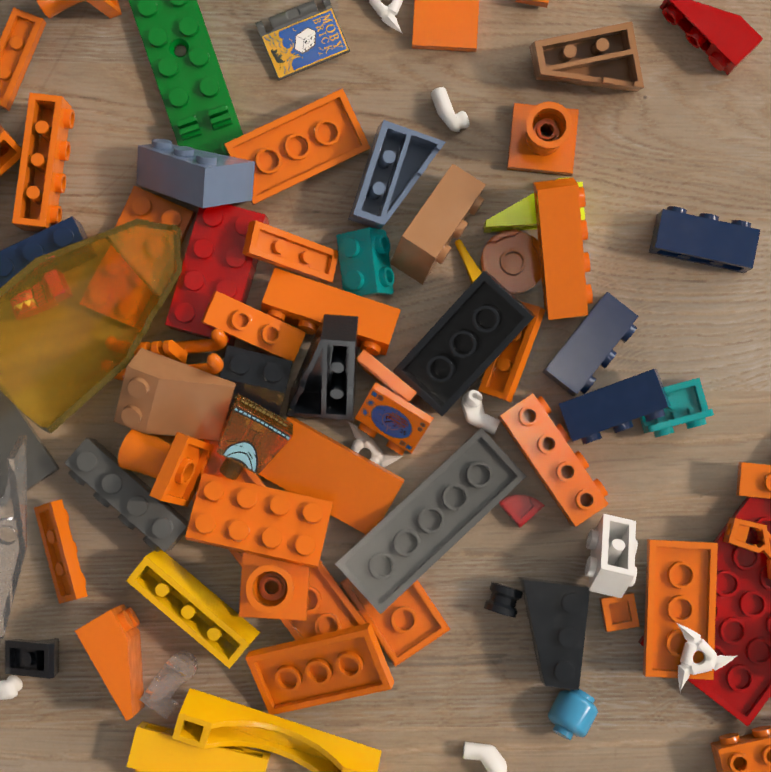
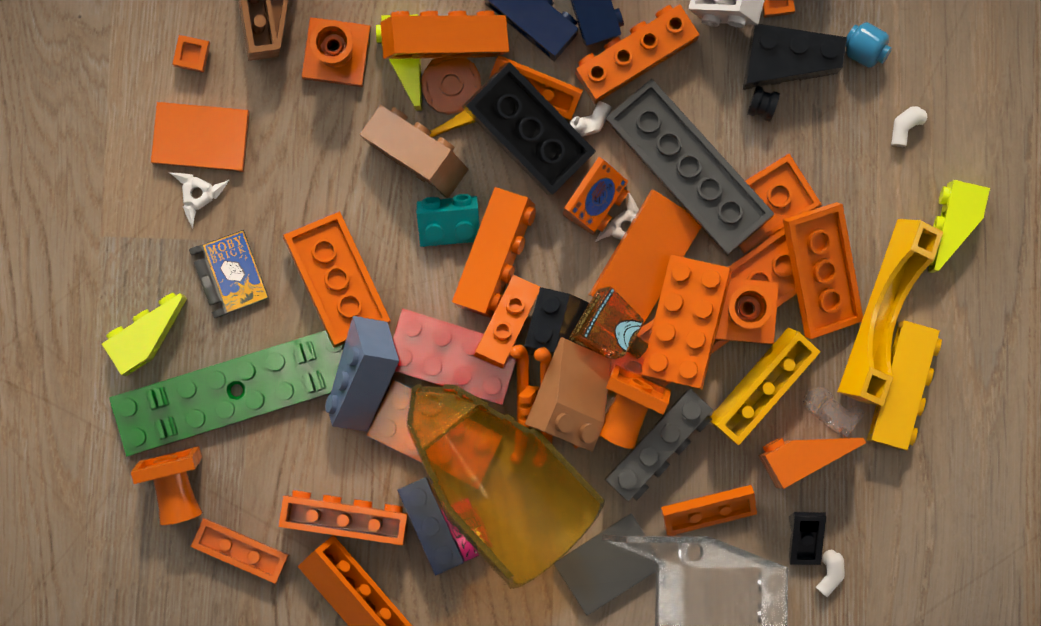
camera: 90 degrees left, 0 degrees up
(290, 252) = (438, 286): orange plate -> none
(328, 373) = (552, 254): black wedge -> none
(385, 376) = (557, 202): orange tile -> none
(391, 171) = (365, 192): sand blue wedge -> none
(446, 113) = (306, 141): white arm -> none
(520, 508) = (680, 85): red tile -> none

